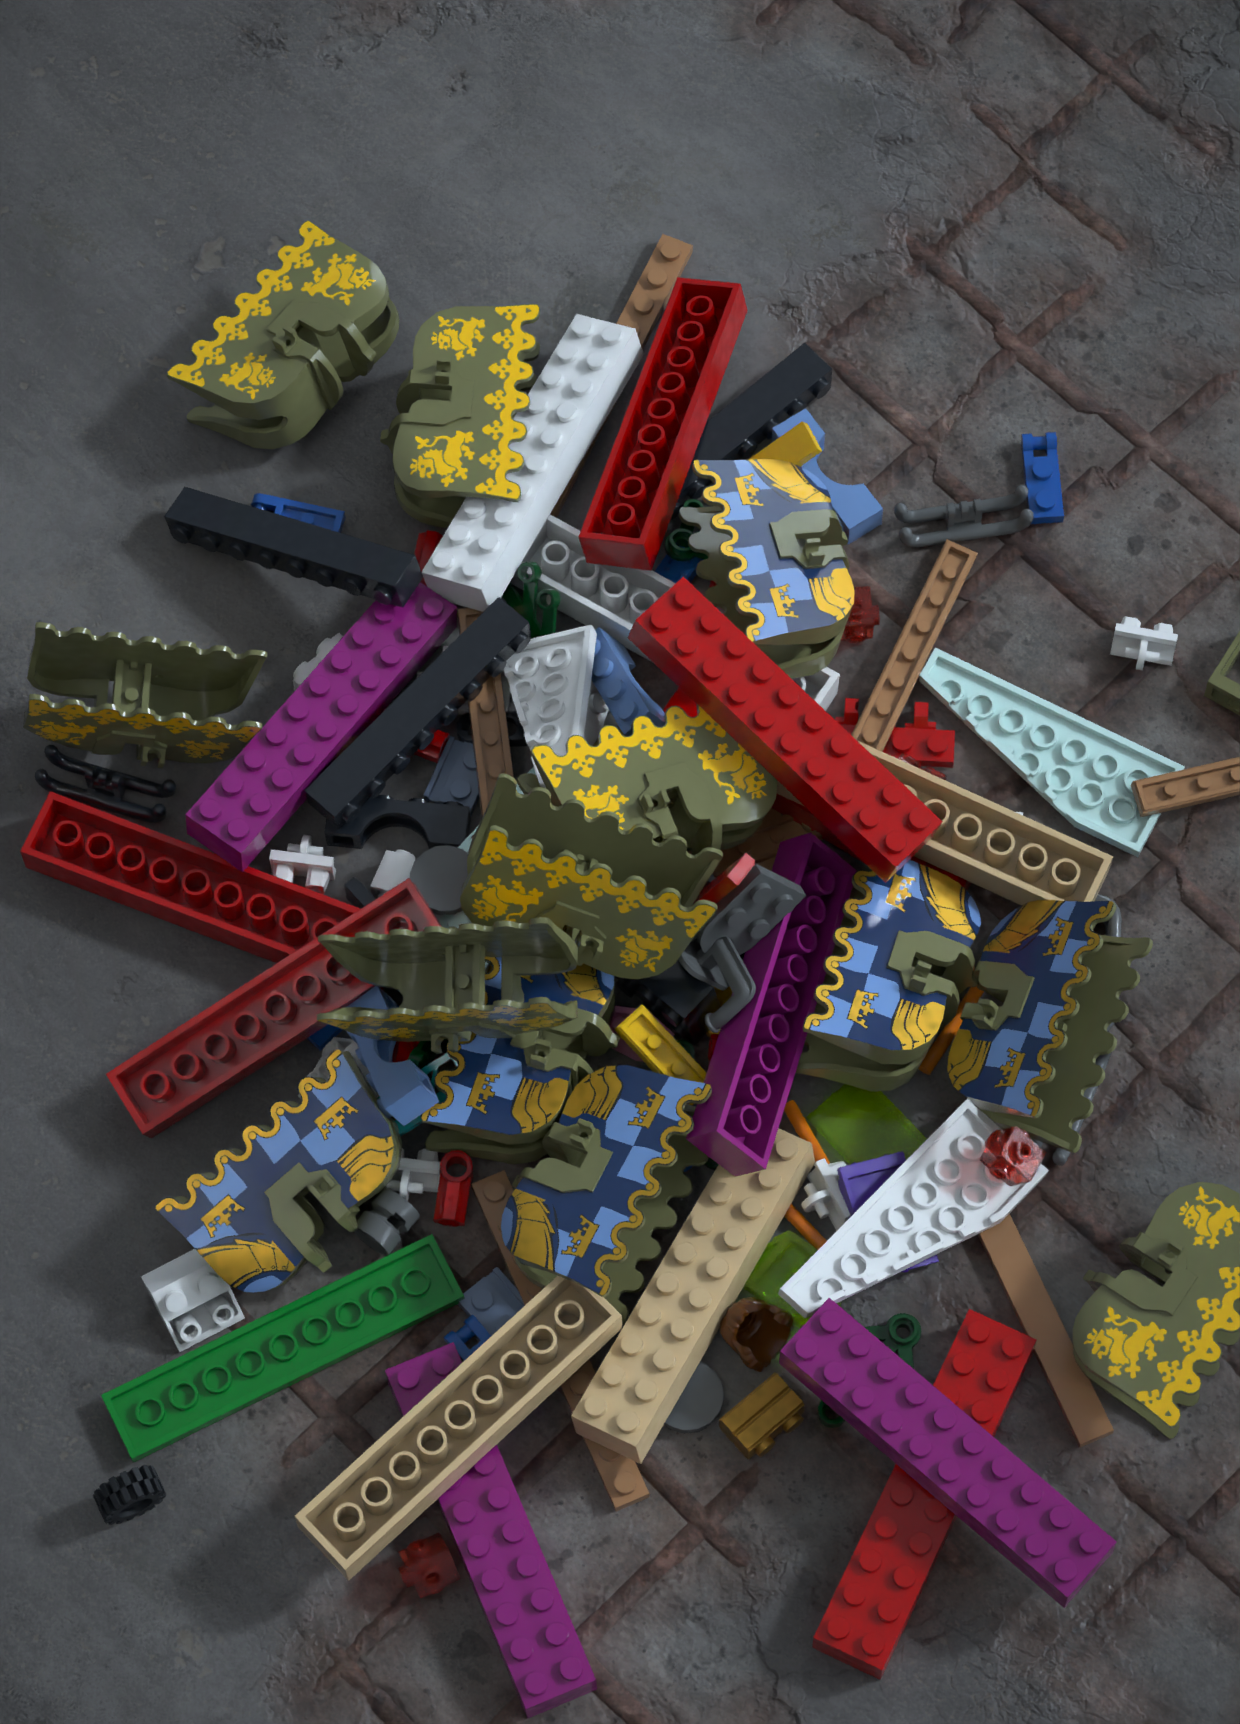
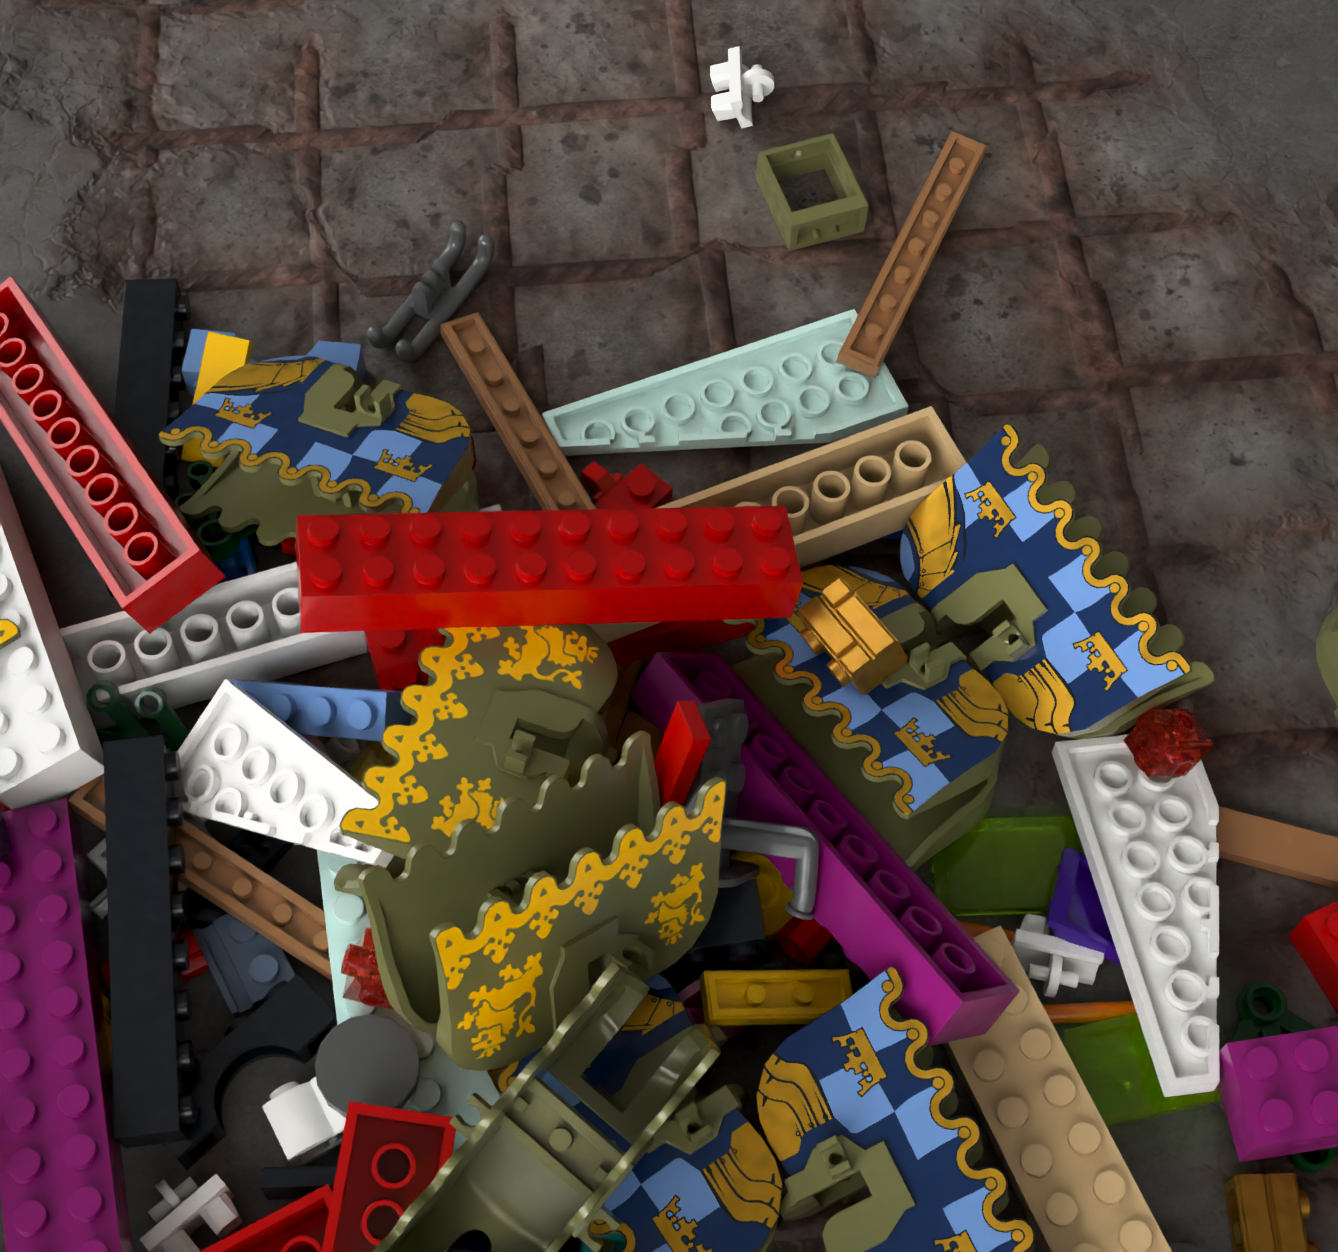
camera: 55 degrees left, 5 degrees down
(756, 1331) = (1165, 1156): reddish brown hair -> none
(896, 922) = (851, 636): none -> pearl gold brick
(1042, 478) = (452, 205): blue plate -> none
(1144, 643) = (699, 253): white hips -> none

